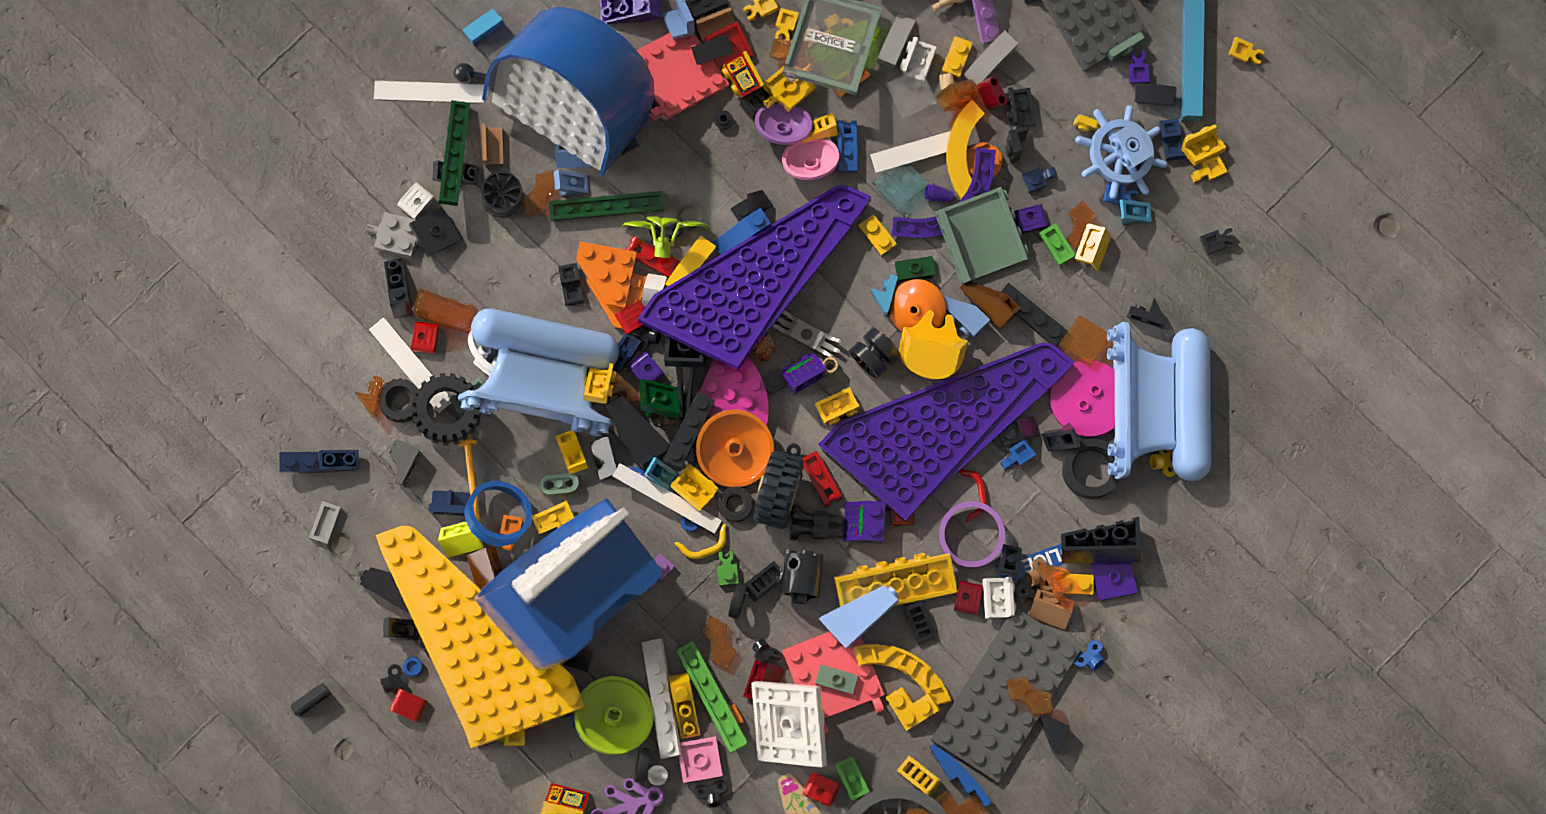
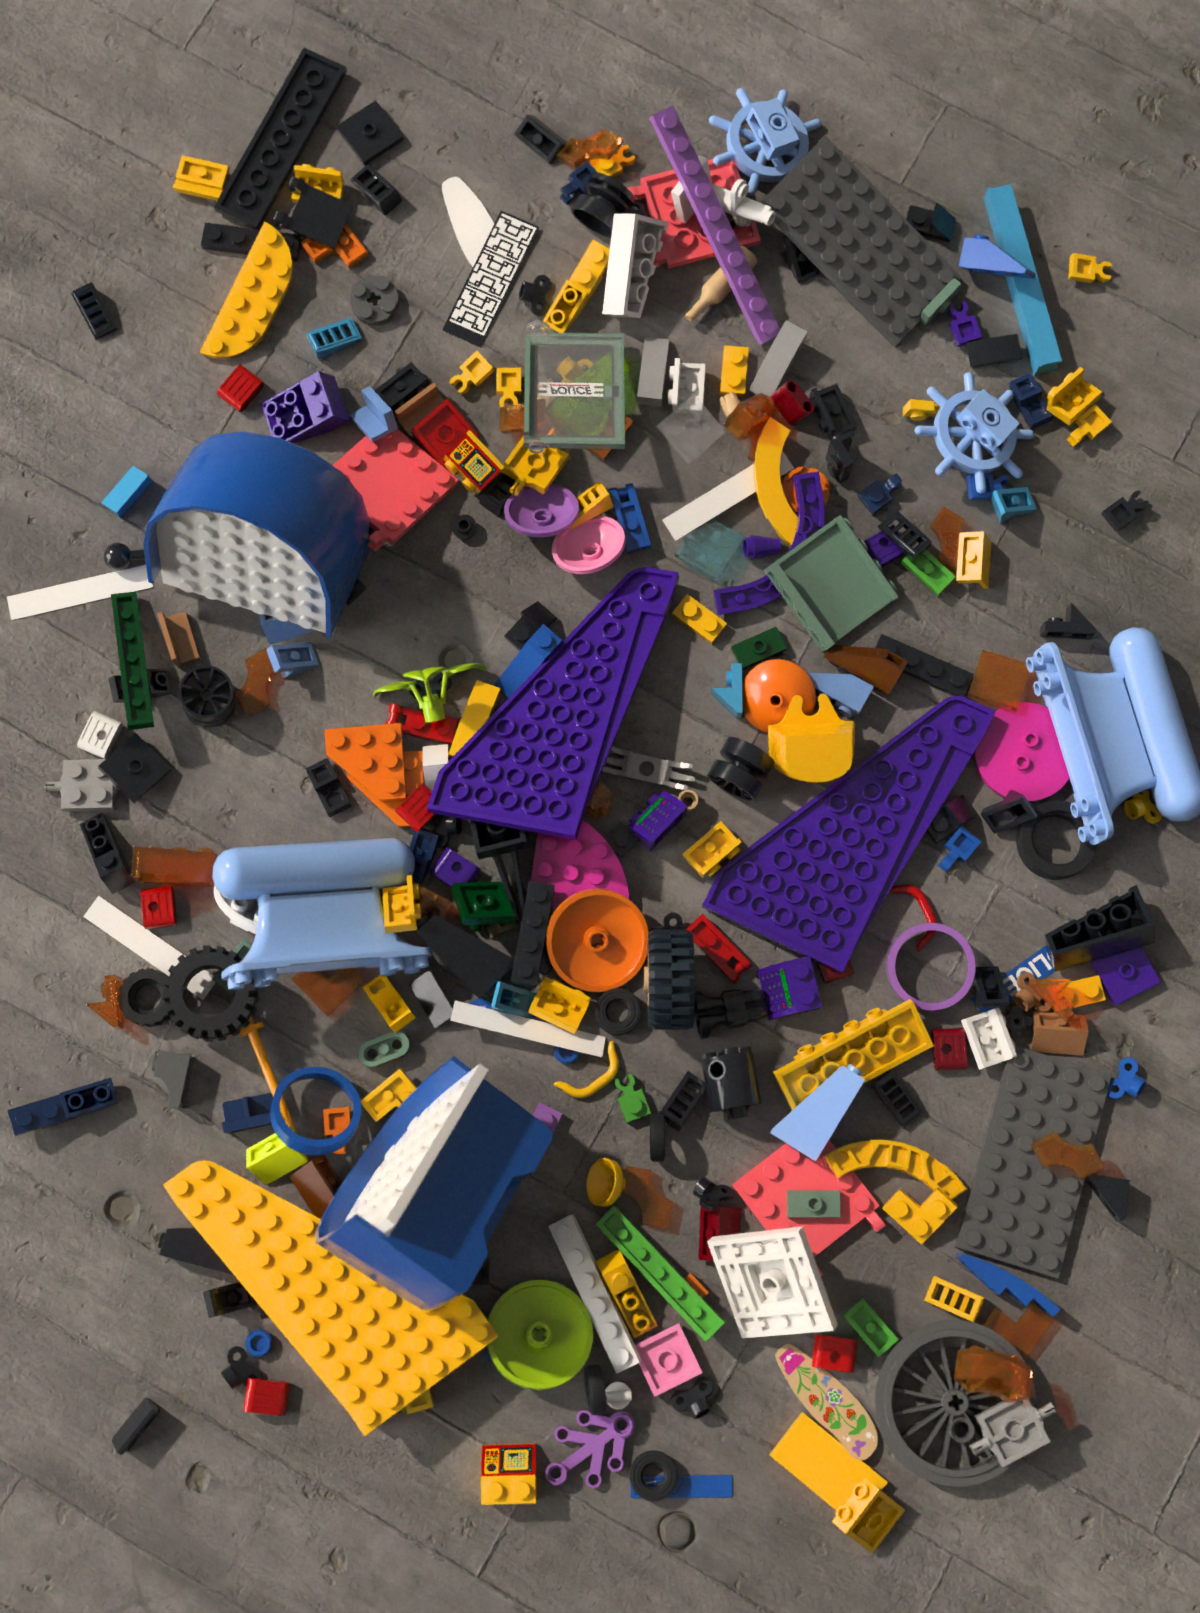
camera: 15 degrees left, 0 degrees up
(325, 522) = (93, 1184): light grey tile -> none
(529, 432) = (331, 992): none -> clear orange tile
(606, 206) = (346, 675): dark green plate -> none
(691, 622) = (600, 1182): none -> yellow piece
(712, 49) = (425, 441): black slope -> none
(1043, 223) = (919, 536): none -> black slope
(1172, 24) = (985, 257): none -> slope

